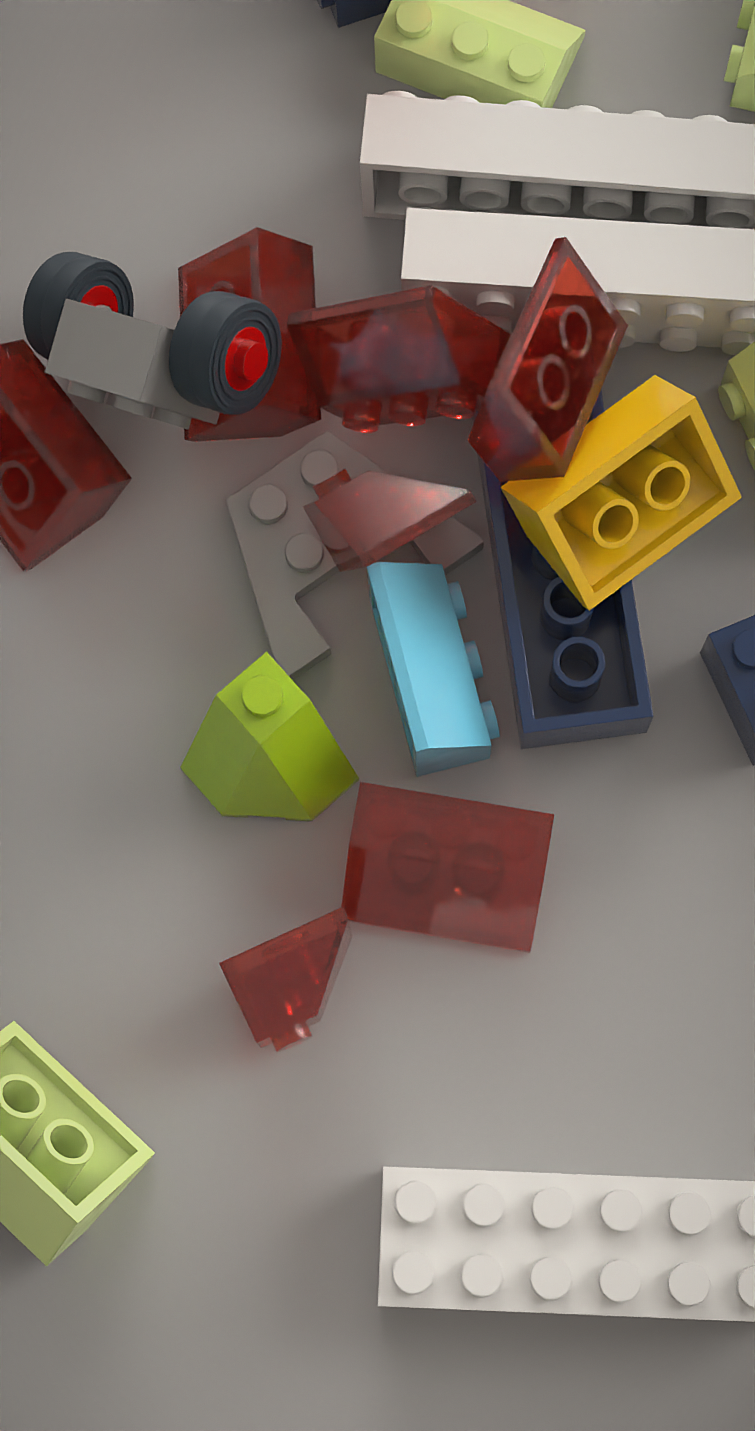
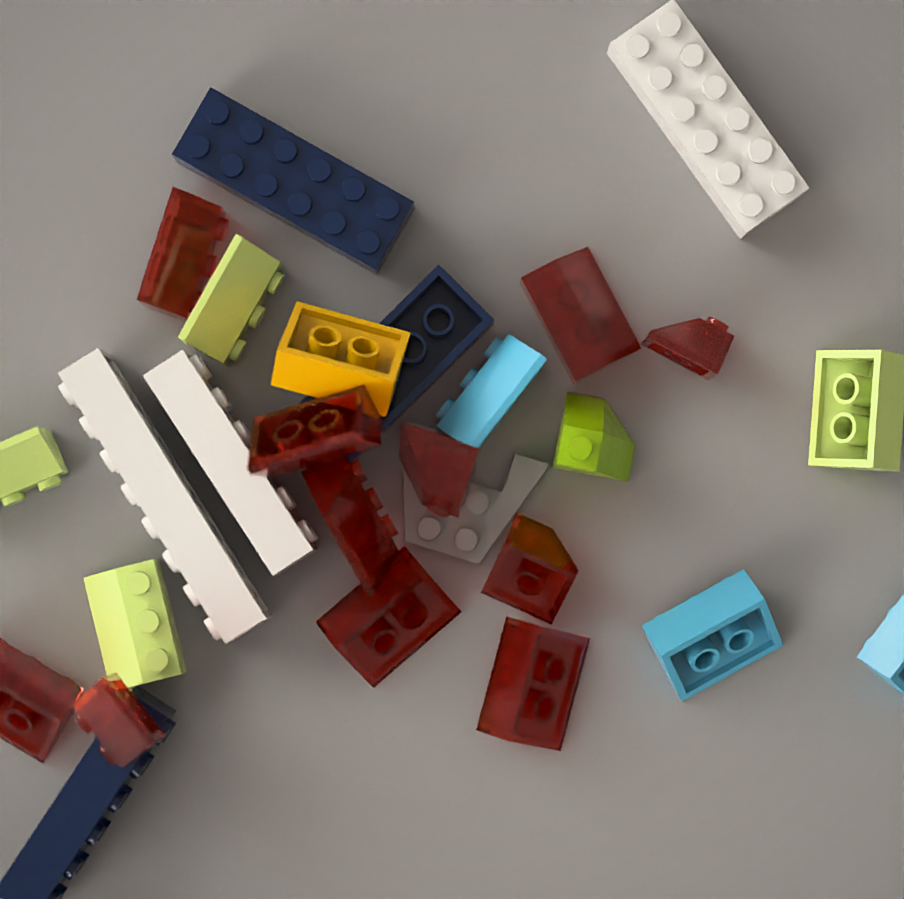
camera: 135 degrees left, 10 degrees up
(168, 555) = (531, 570): none -> clear red slope
(210, 365) = (447, 656): brick -> none

